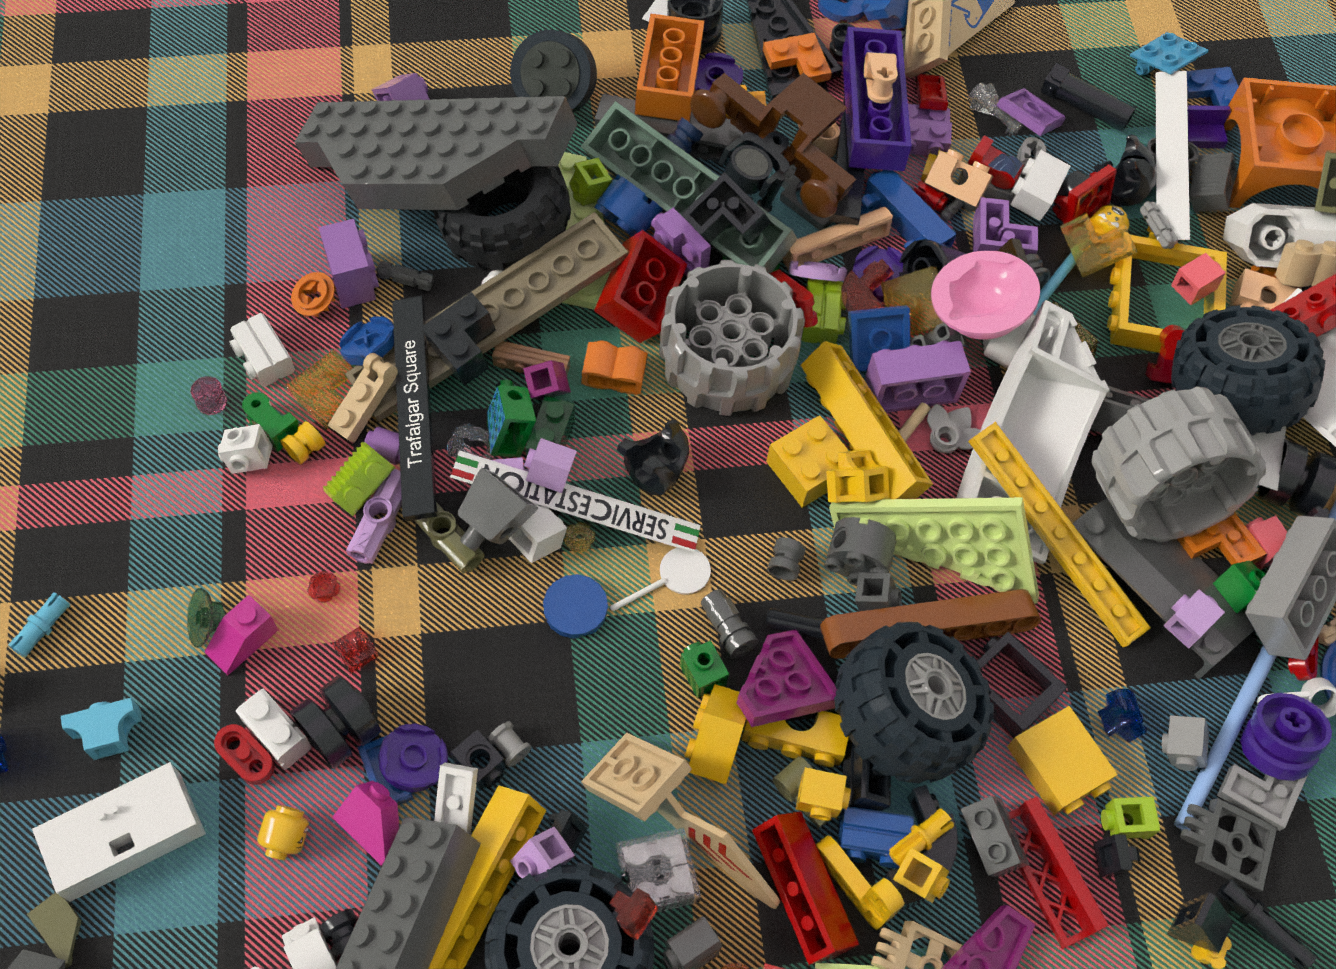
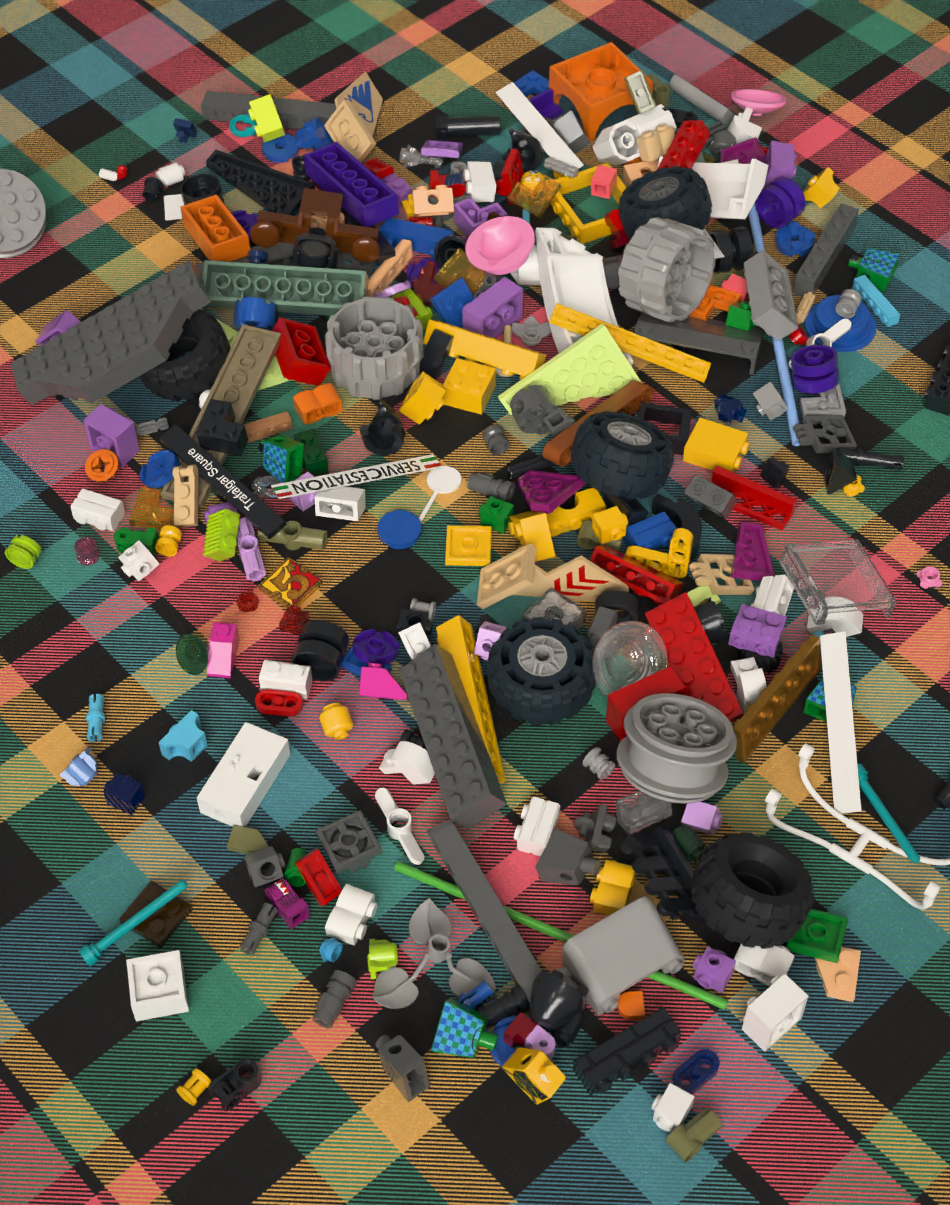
camera: 30 degrees left, 10 degrees down
(142, 351) = (23, 552): none -> lime wheel
(391, 595) = (290, 583): none -> tile
(493, 510) = (320, 498): dark grey torso -> none
(546, 380) = (287, 425): magenta brick -> none
(549, 465) = (329, 463): lavender brick -> none
(554, 66) = (142, 263): wheel -> none
(582, 544) = (373, 496): clear yellow plate -> none
(584, 187) = (223, 312): lime brick -> none
(634, 911) = (563, 617): clear red tile -> none
(636, 689) = (468, 545): none -> yellow plate
(681, 239) = (306, 313): medium lavender plate -> none
(725, 205) = (322, 275): black brick -> none
(738, 925) = (619, 600): none -> black tyre
(739, 443) = (422, 398): none -> yellow brick
(799, 51) = (282, 185): orange plate -> none
(805, 387) = (435, 352): none -> black slope
(857, 478) = (504, 374): yellow brick -> none
(880, 75) = (348, 167): light nougat piece -> none
(922, 836) = (675, 514): yellow axle -> none
(922, 876) = (693, 522): yellow brick -> none
(1140, 813) = (765, 449): lime brick -> none
(1167, 54) = (493, 79): dark azure hinge -> none
(1193, 617) = (729, 338): lavender brick -> none

